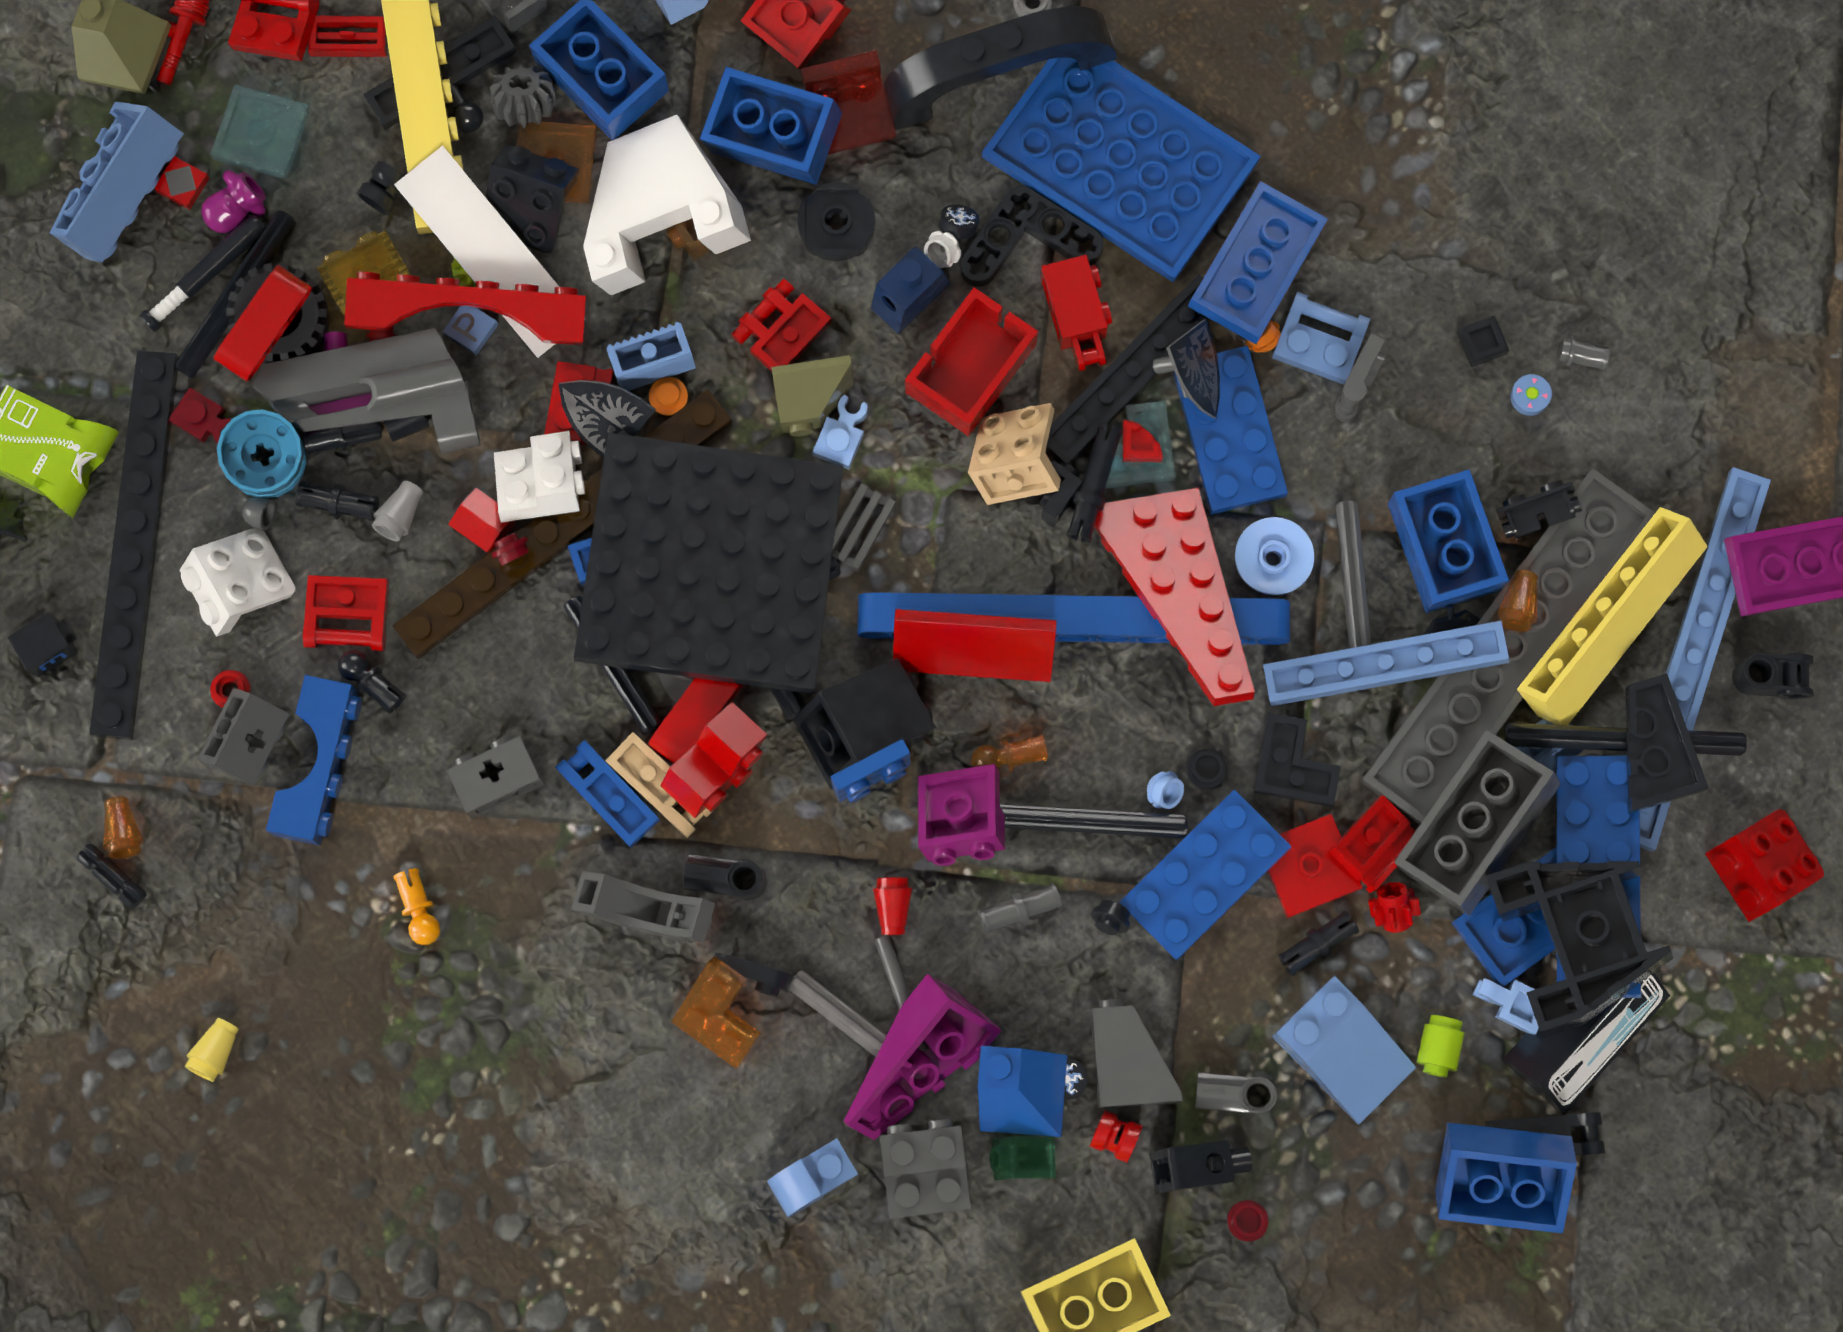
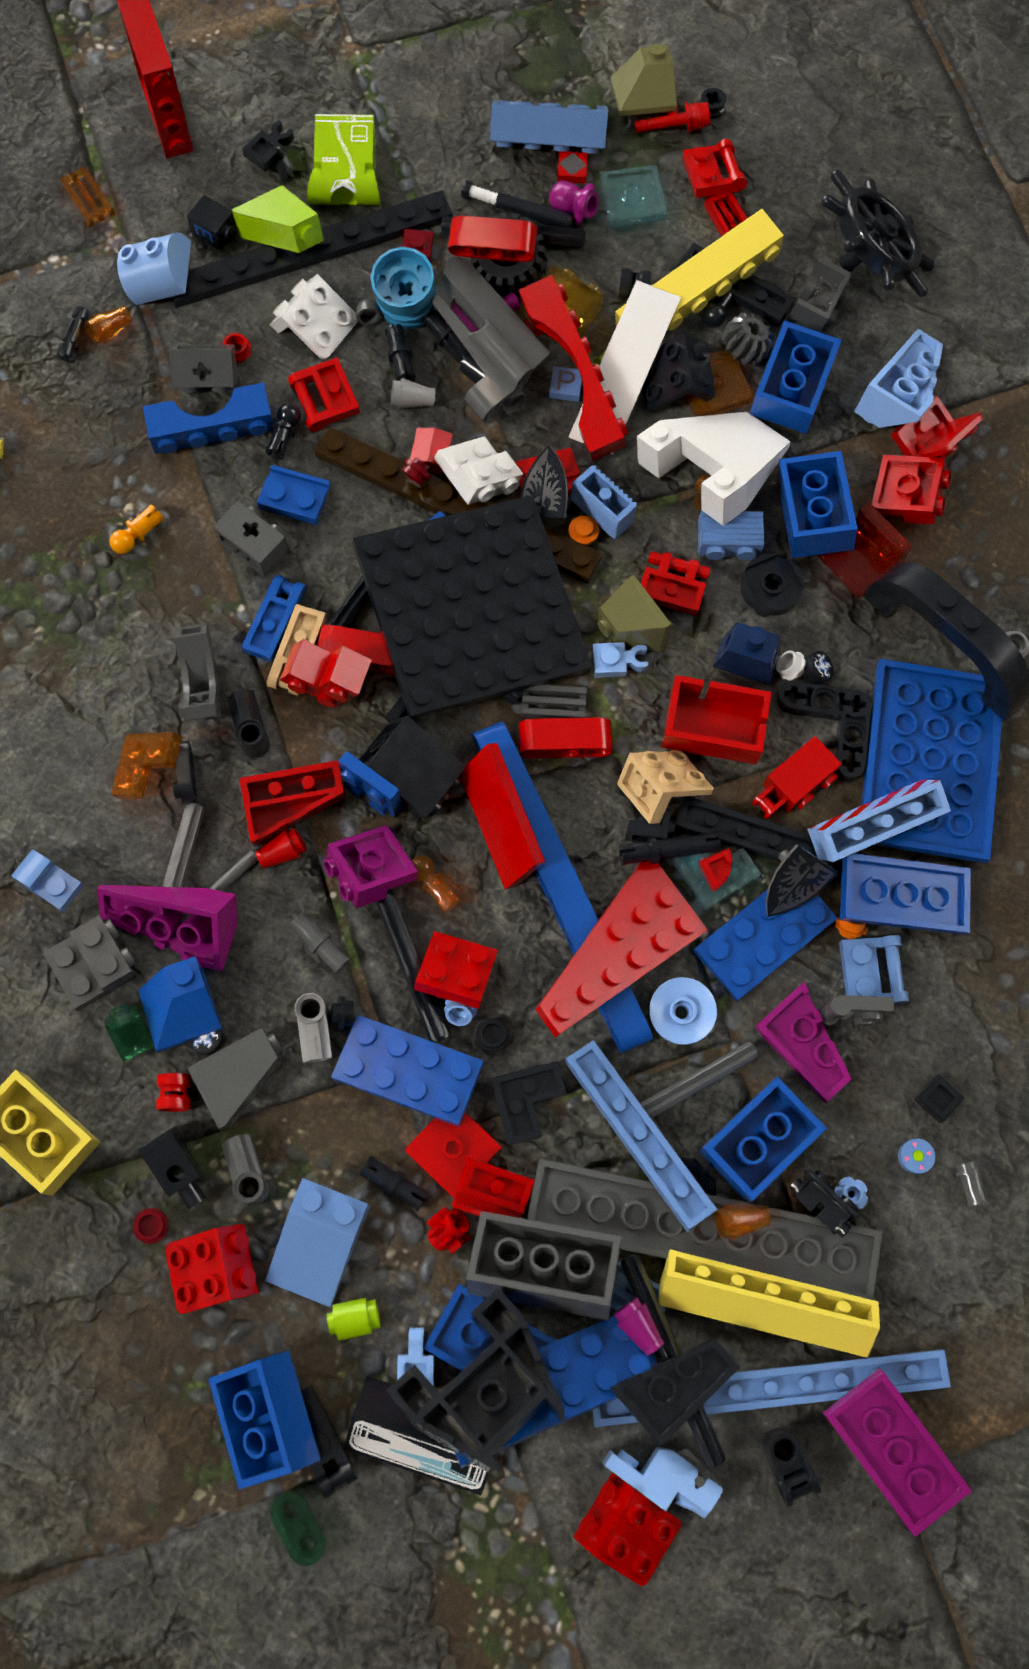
camera: 60 degrees right, 5 degrees down
(77, 739) = (154, 268): none -> light blue brick
(91, 561) = (279, 221): none -> lime slope
(458, 704) = (294, 494): none -> blue plate
(768, 225) = (738, 538): none -> medium blue brick
(839, 869) = (288, 797): none -> red wedge
(910, 534) = (565, 738): none -> red beam
(1117, 958) = (313, 1032): none -> light grey piece
(1120, 773) = (455, 969): none -> red plate
(1170, 248) = (879, 820): none -> light blue brick
(1322, 1175) = (211, 1268): none -> red bracket
(1363, 449) = (802, 1041): none -> magenta wing
(1537, 469) = (857, 1186): none -> light blue plate
(1579, 755) = (639, 1326): none -> magenta cone
(1621, 1193) = (297, 1527): none -> clear green plate
(1736, 799) = (668, 1477): none -> light blue plate

